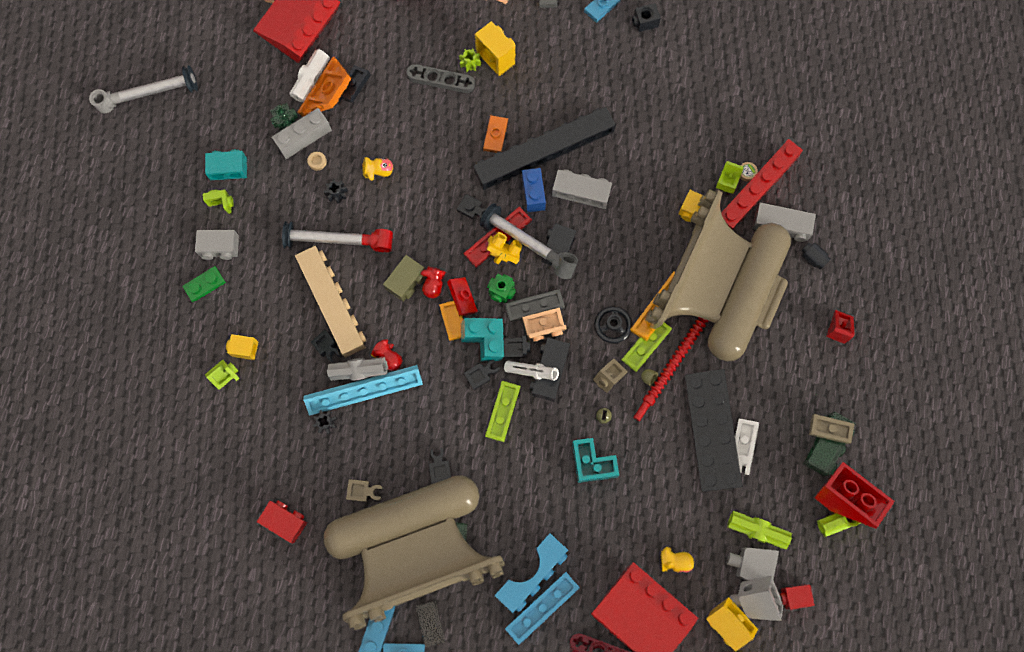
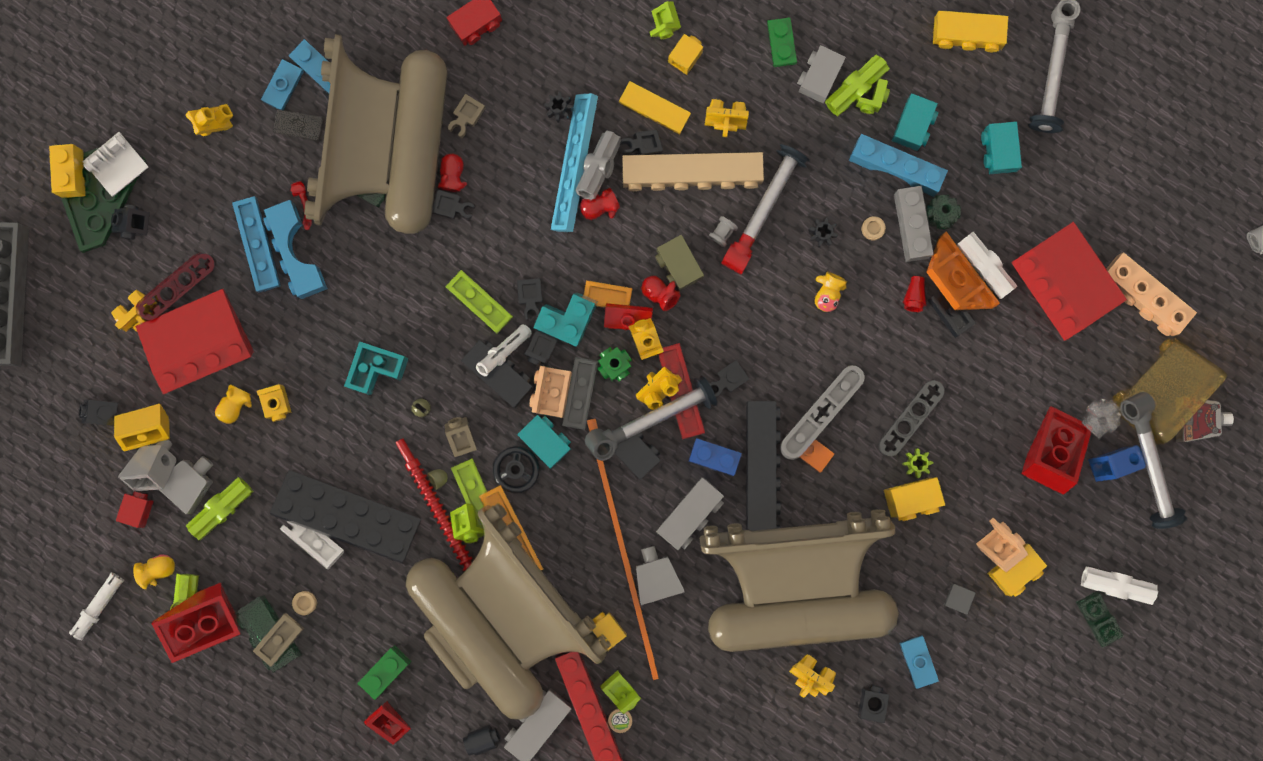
camera: 115 degrees right, 10 degrees up
(141, 157) = (970, 31): none -> yellow brick
(214, 216) = (856, 85): none -> lime piece
(219, 100) = (1002, 148): none -> teal brick
(261, 162) = (913, 170): none -> dark azure arch
(281, 295) = (726, 119): none -> yellow hips
(294, 352) = (654, 107): none -> yellow tile
(353, 111) = (915, 296): none -> red cone
(366, 259) = (723, 231): none -> light grey bush
(412, 480) = (451, 171): none -> red animal
(452, 131) = (837, 396): none -> light grey piece
(472, 275) = (646, 338): none -> yellow brick
(482, 596) = (298, 189): none -> red piece
(554, 285) = (592, 424): none -> orange piece
(582, 312) = (544, 441): none -> teal brick
(591, 92) = (800, 584): none -> dark tan piece
(638, 190) = (656, 577): none -> light grey torso
(650, 528) = (279, 394): none -> yellow brick
(653, 60) = (810, 680): none -> yellow hips
(672, 339) = (464, 524): none -> lime bracket
(791, 430) = (304, 603): none -> tan tile
(808, 344) = (384, 672): none -> green brick
(831, 557) = (155, 568): none -> yellow animal
(893, 590) = (90, 614): none -> white pin

